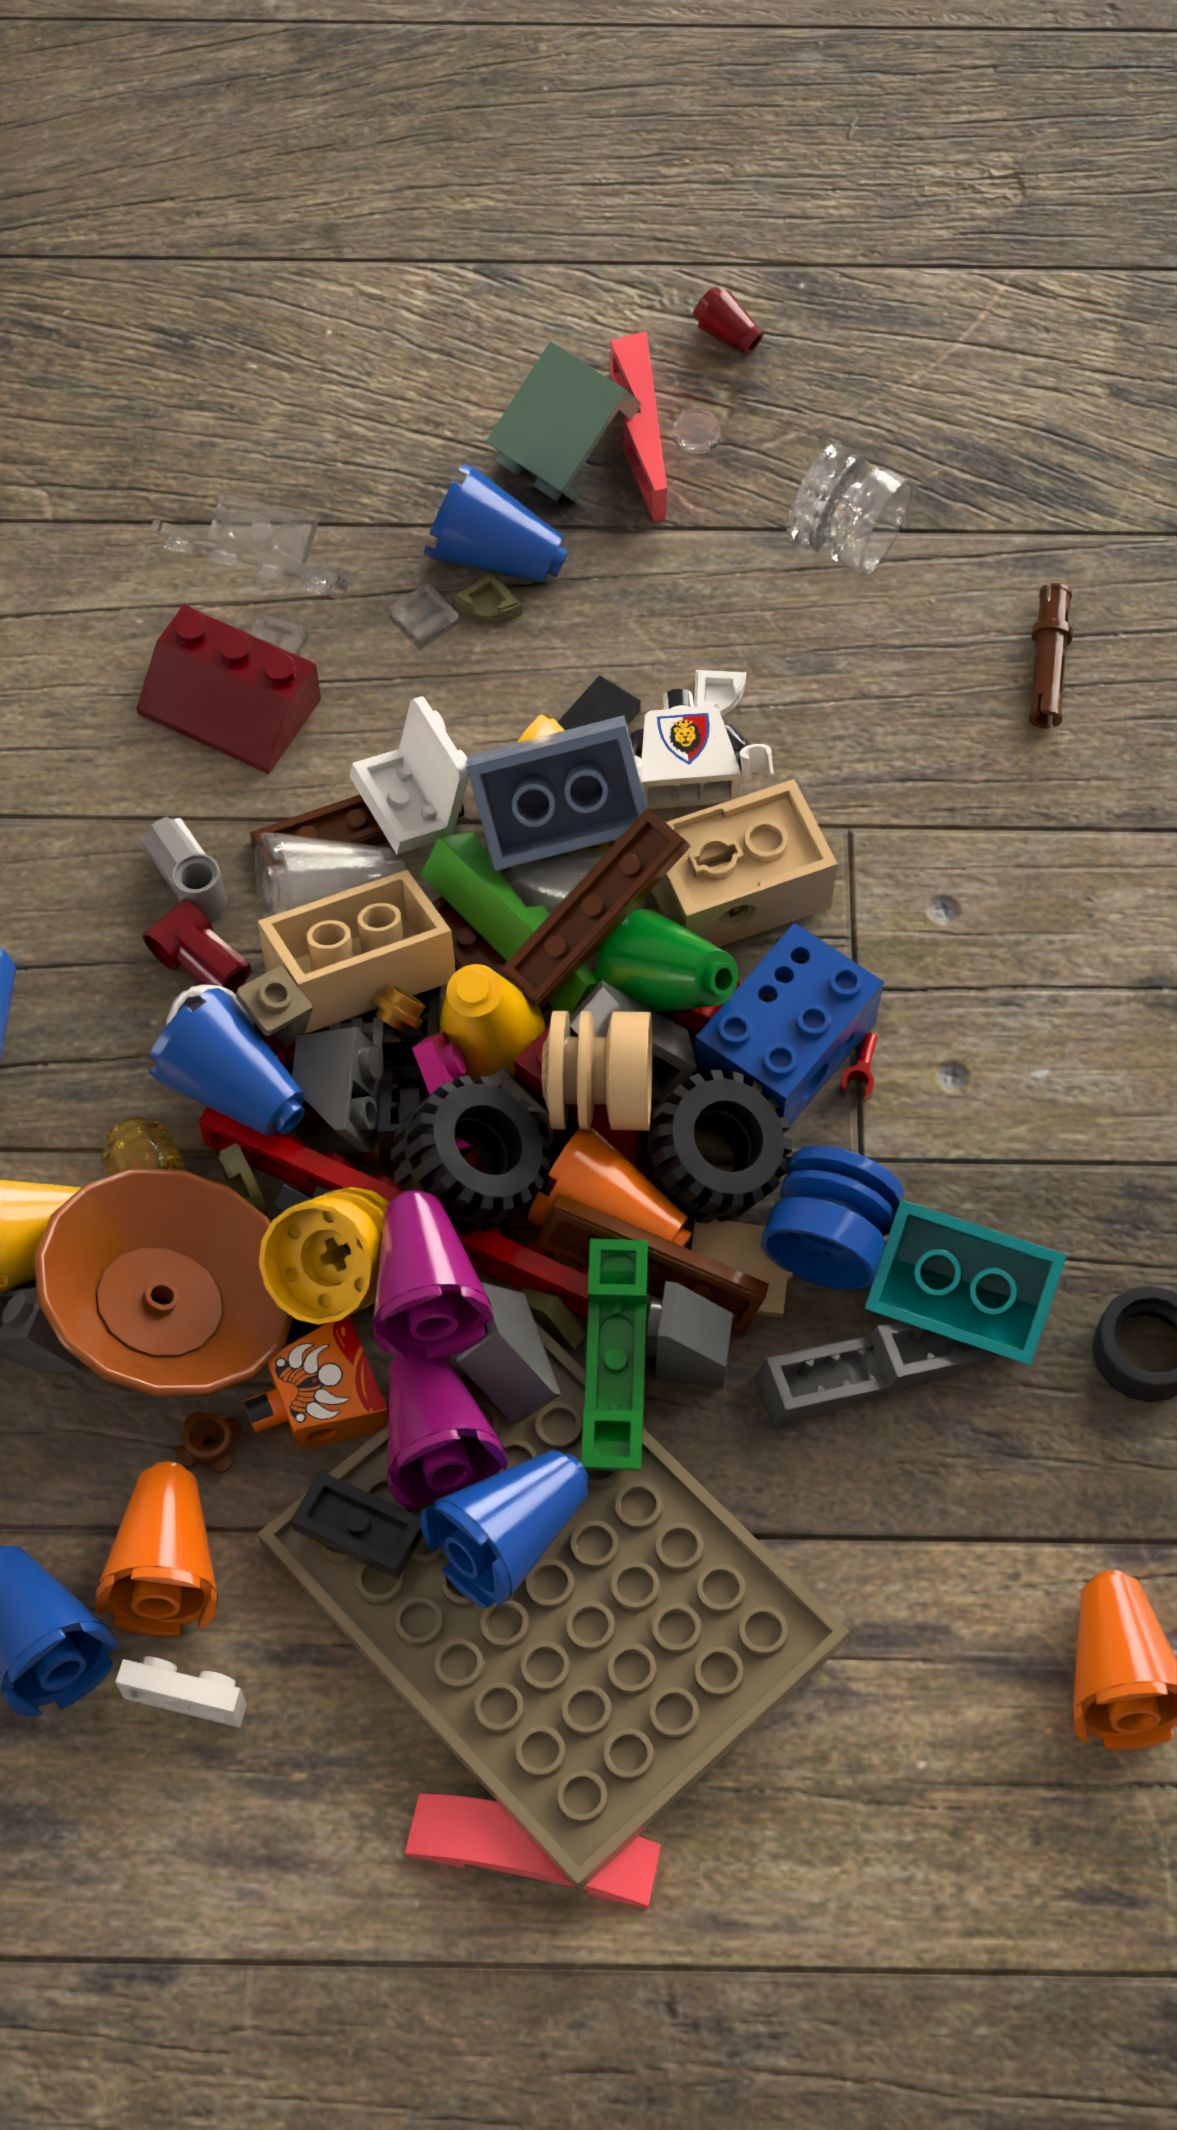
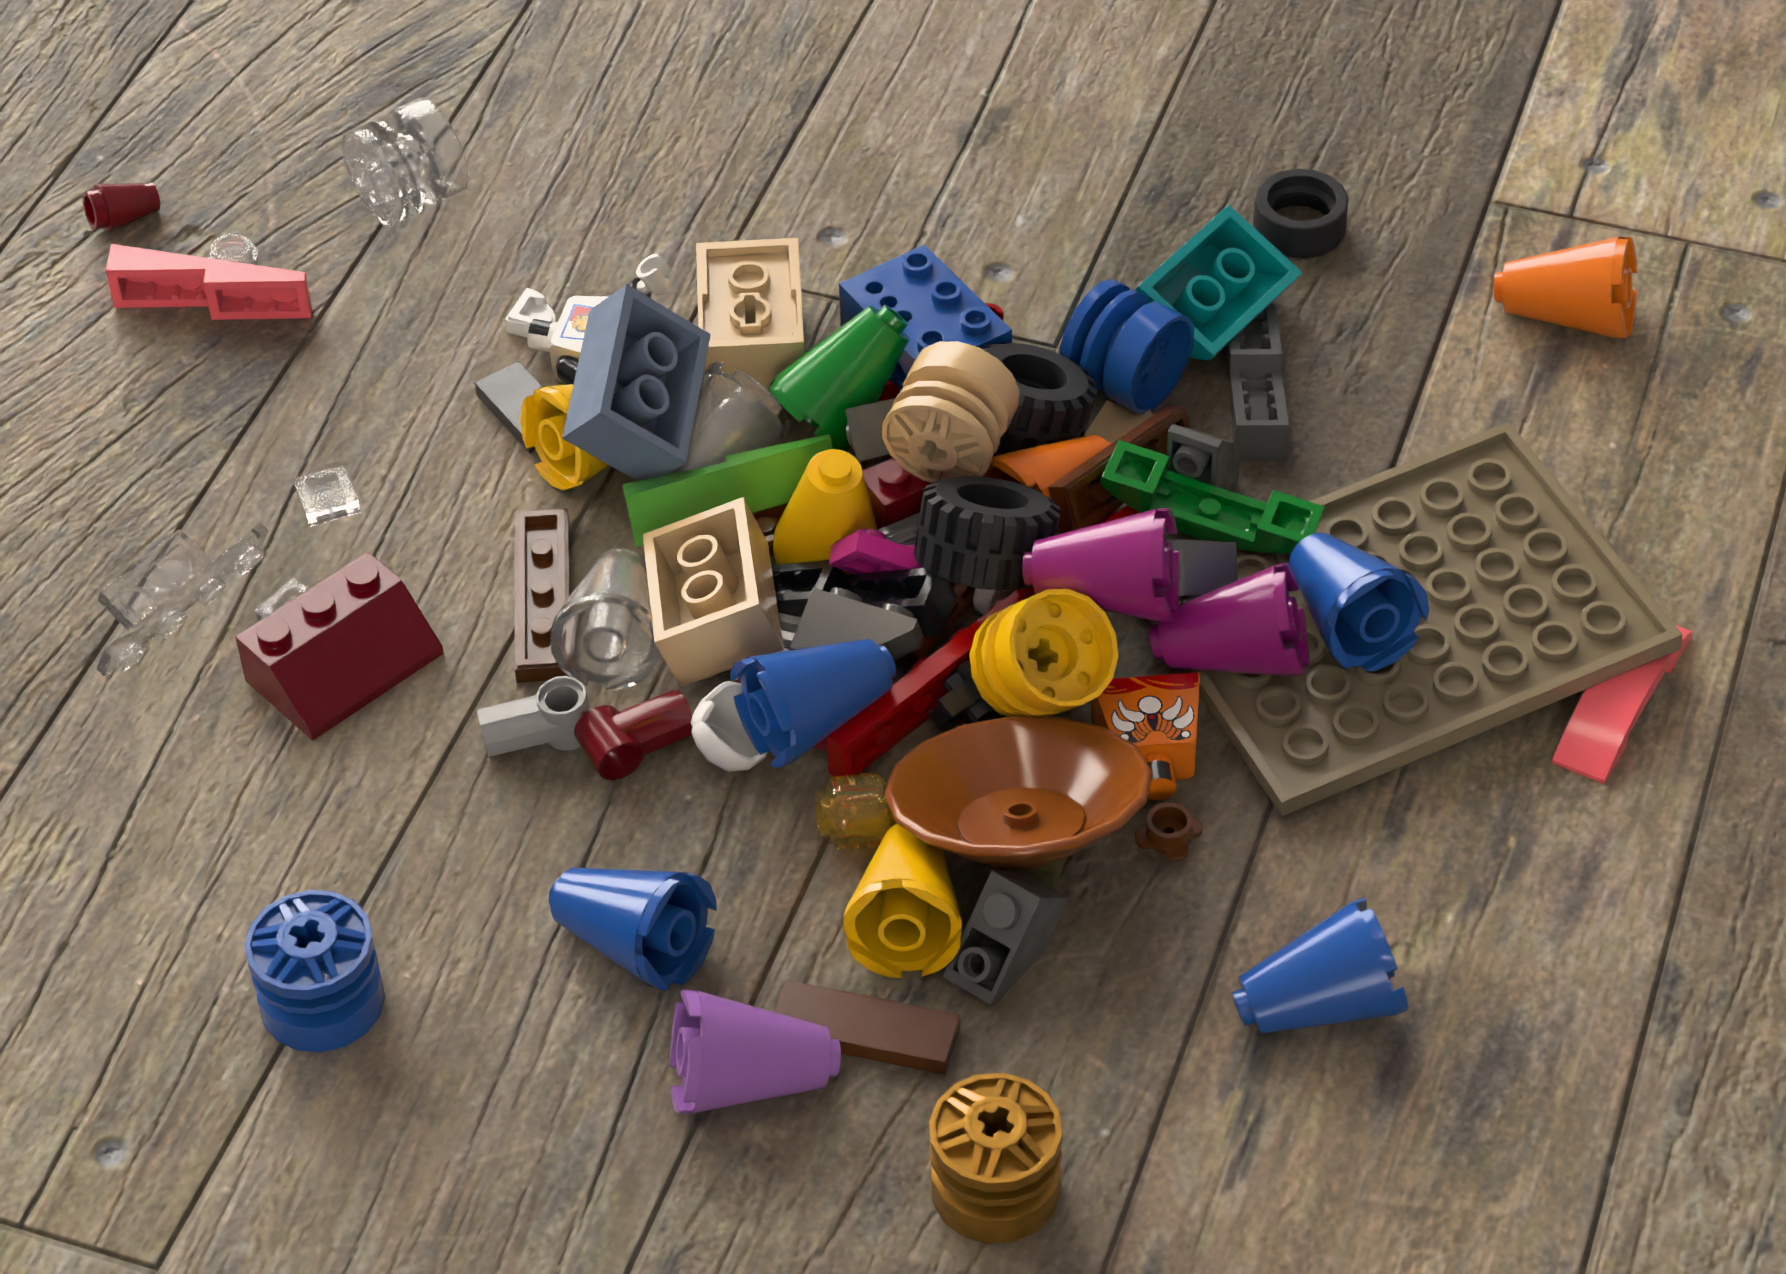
camera: 70 degrees left, 15 degrees down
(159, 1685) = (1423, 882): white plate -> none
(160, 1558) = (1279, 867): orange cone -> none
(240, 1177) = (897, 742): olive tile -> none
(276, 1005) = (763, 630): dark tan bracket -> none
(358, 1524) = (1308, 711): black plate -> none
(398, 1008) = (793, 570): pearl gold plate -> none
(419, 786) = (546, 498): white bracket -> none
(487, 601) = (337, 444): olive tile -> none
(494, 531) = (267, 410): blue cone -> none
(558, 421) = (186, 322): sand green panel -> none
(595, 908) = (764, 388): reddish brown tile -> none
(1051, 640) = (600, 93): reddish brown pin -> none

